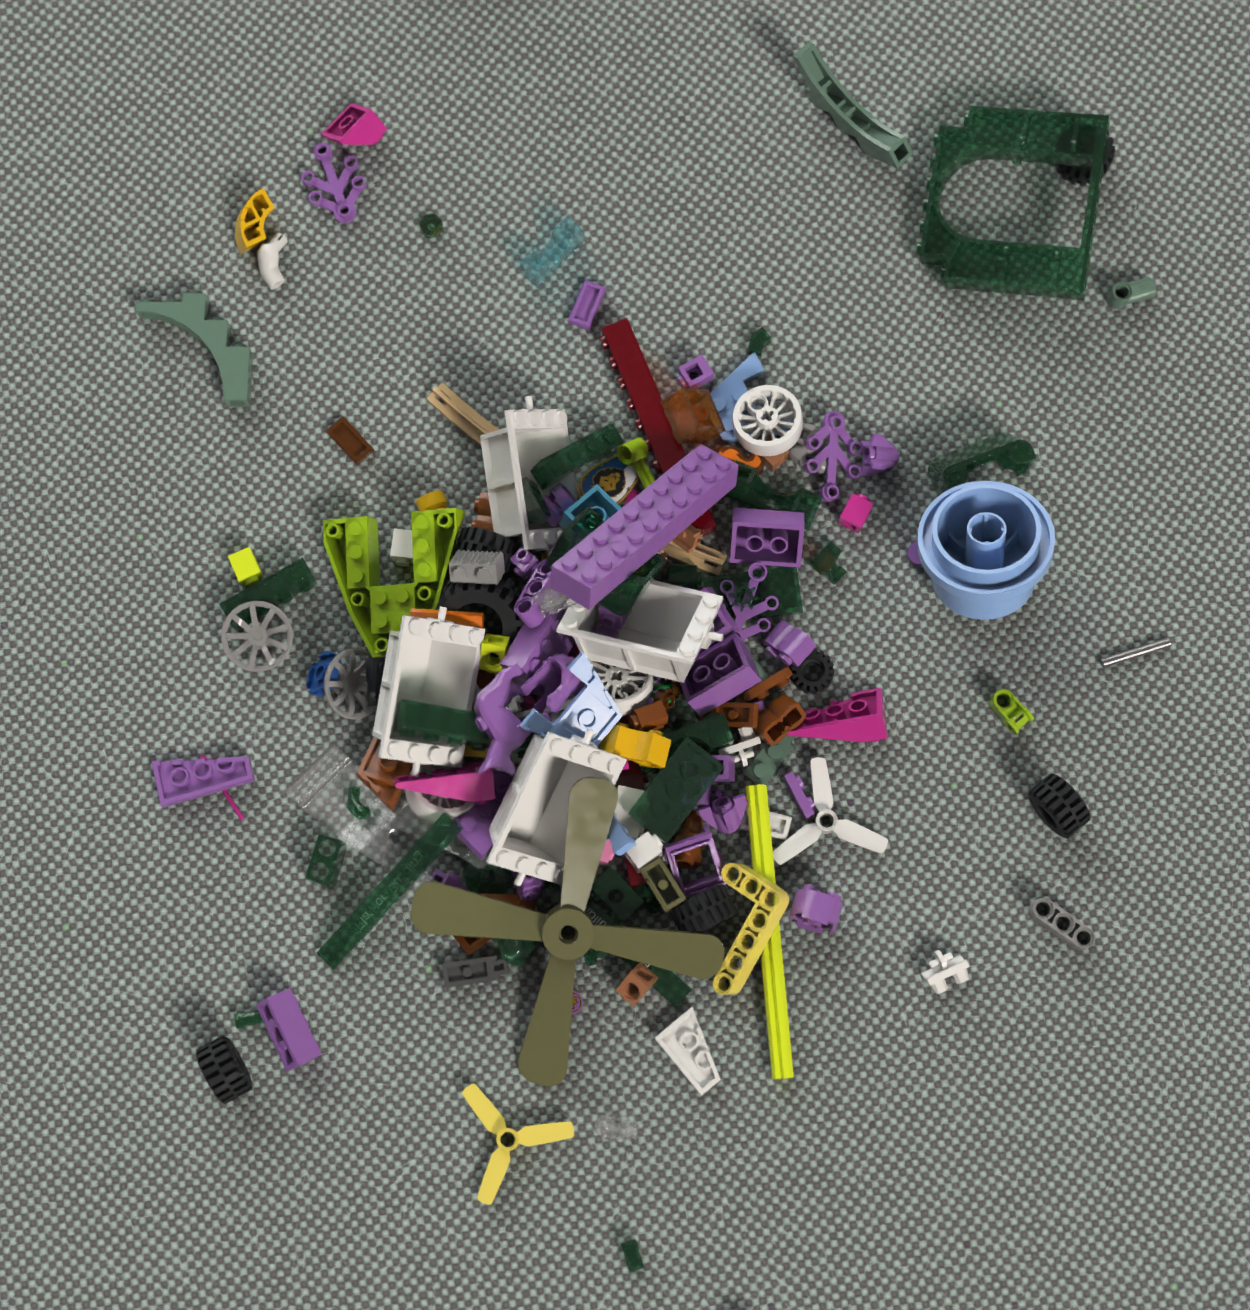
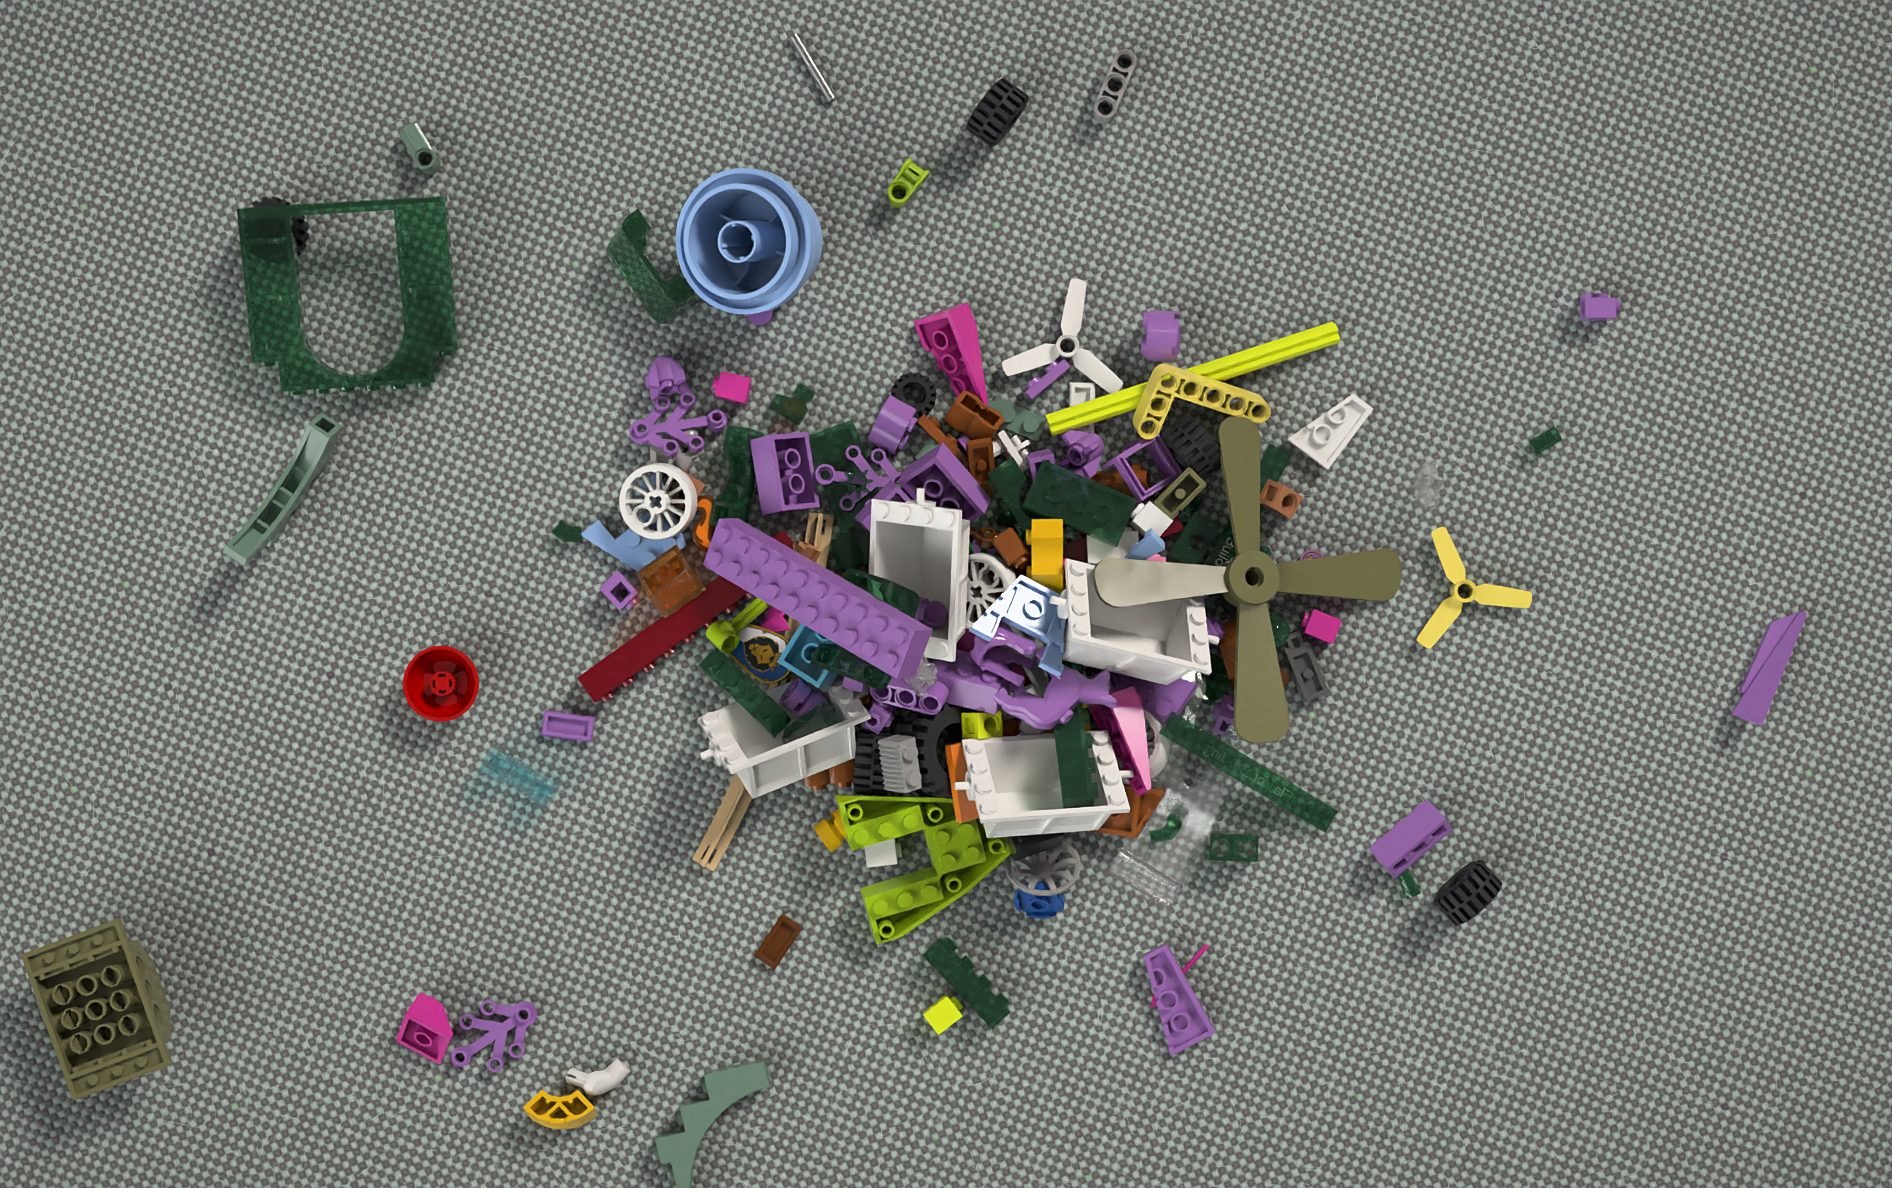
camera: 100 degrees left, 10 degrees up
(257, 636) = (1015, 980): light grey wheel -> none
(431, 226) = (517, 916): clear green tile -> none
(508, 994) = (1320, 626): none -> dark pink brick
(644, 192) = (426, 678): none -> red piece
(944, 967) = (1188, 194): white hips -> none

